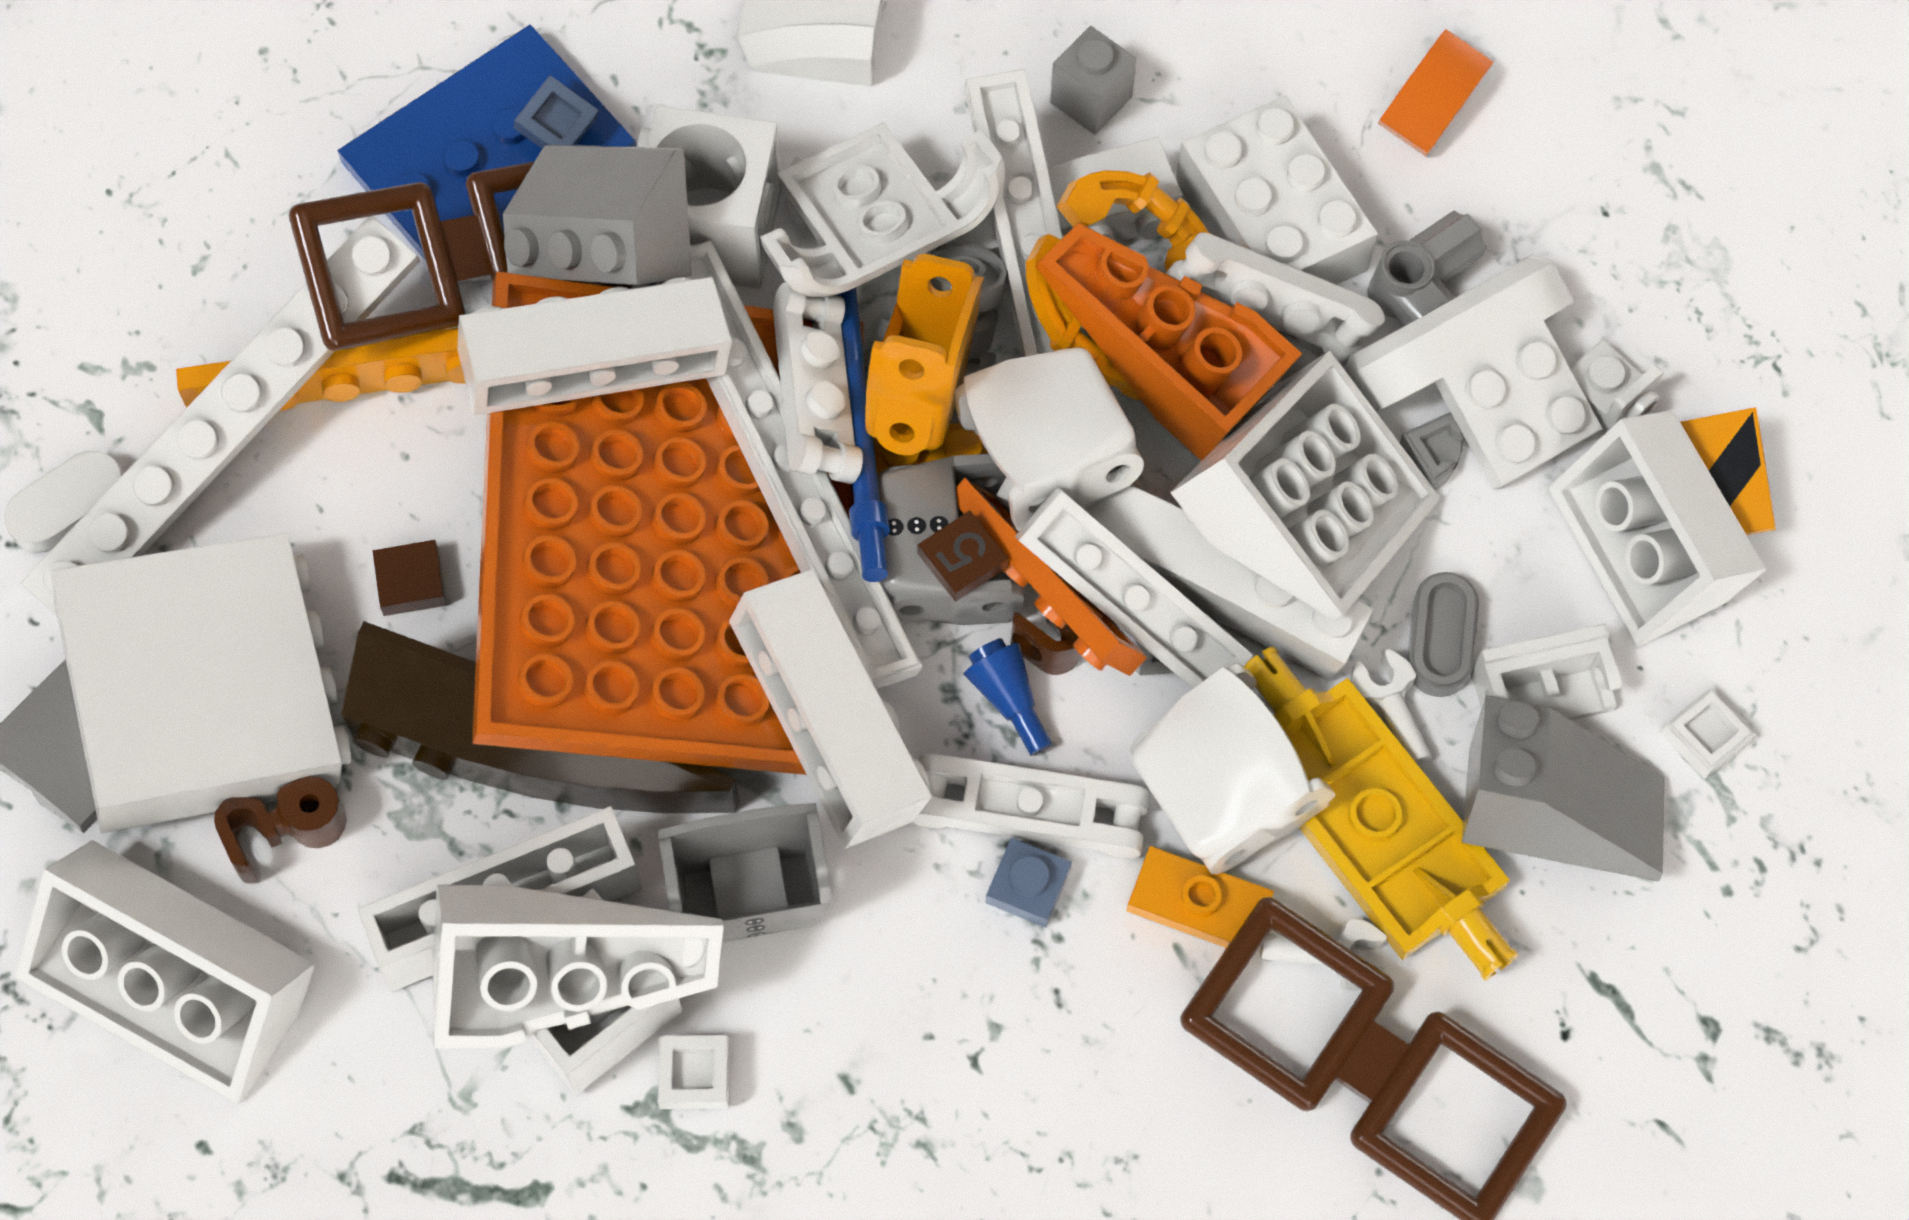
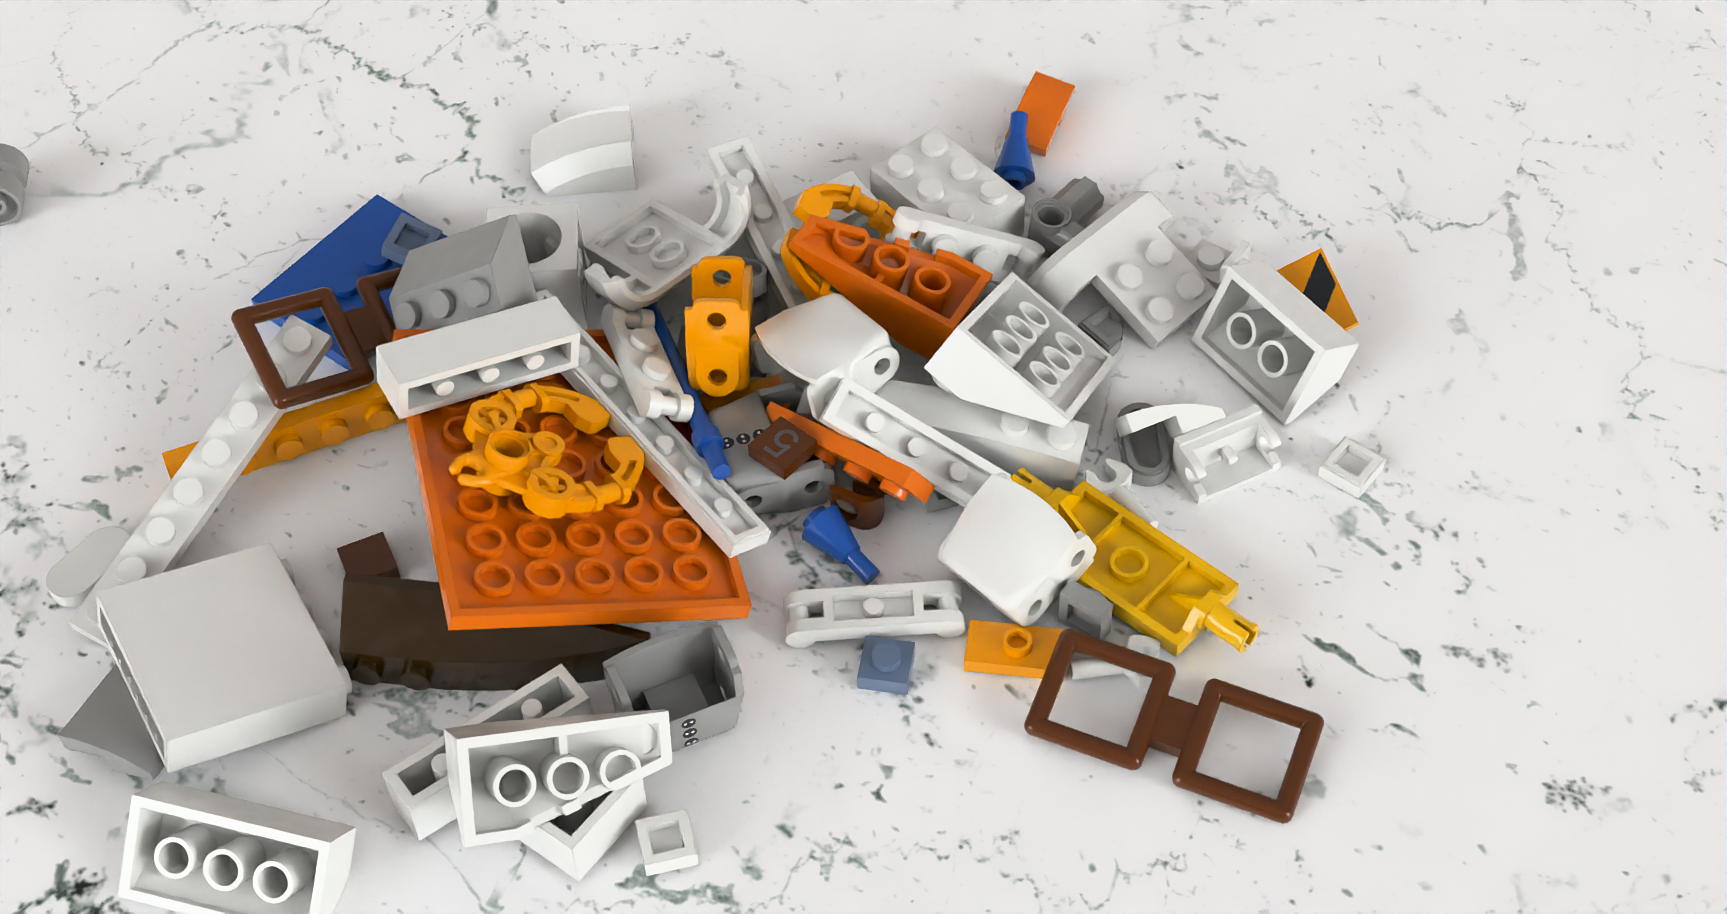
camera: 10 degrees left, 15 degrees down
(305, 810) = (325, 731): reddish brown leg -> none
(631, 505) = (525, 462): none -> light orange piece
(830, 707) = (710, 562): white brick -> none
(1092, 79) = (795, 149): light grey brick -> none
(1301, 871) = (1085, 610): none -> light grey plate
(1381, 165) = (1015, 158): none -> blue cone
(1498, 619) = (1176, 417): none -> white slope
(1560, 793) = (1255, 518): light grey slope -> none

